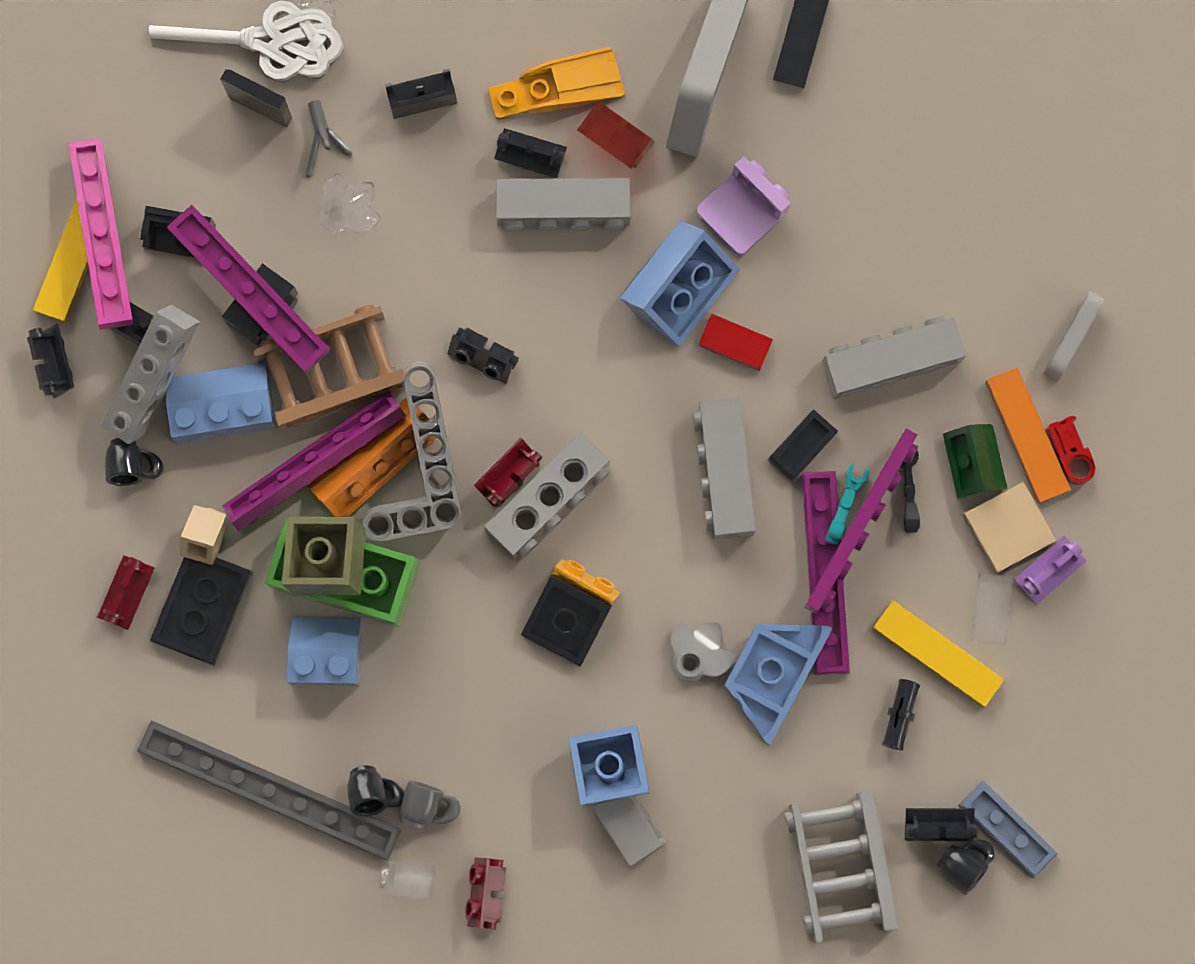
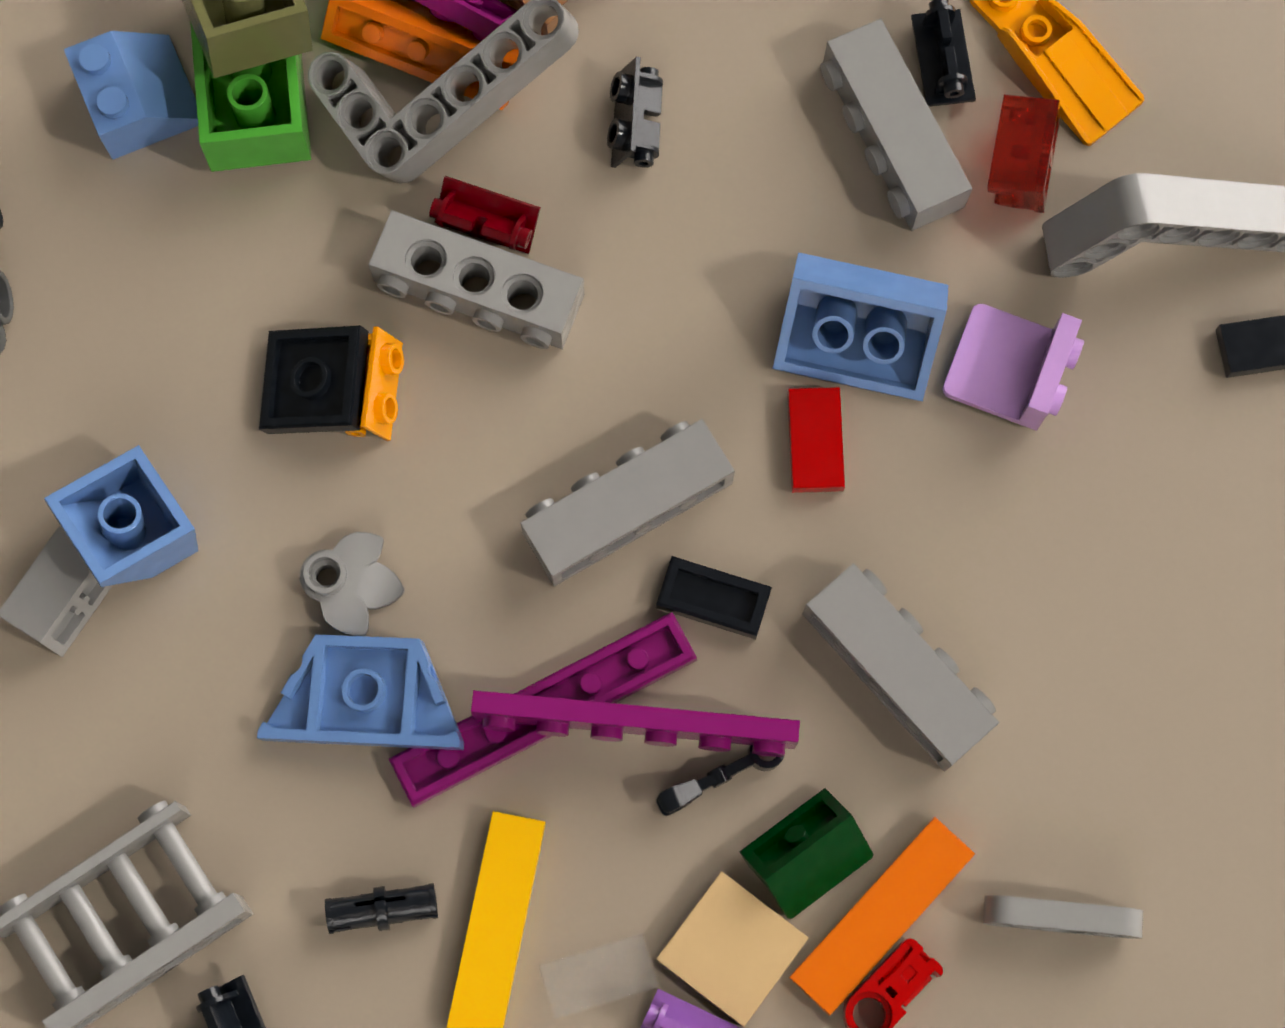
camera: 65 degrees right, 5 degrees down
(852, 486) = (683, 692): teal piece -> none

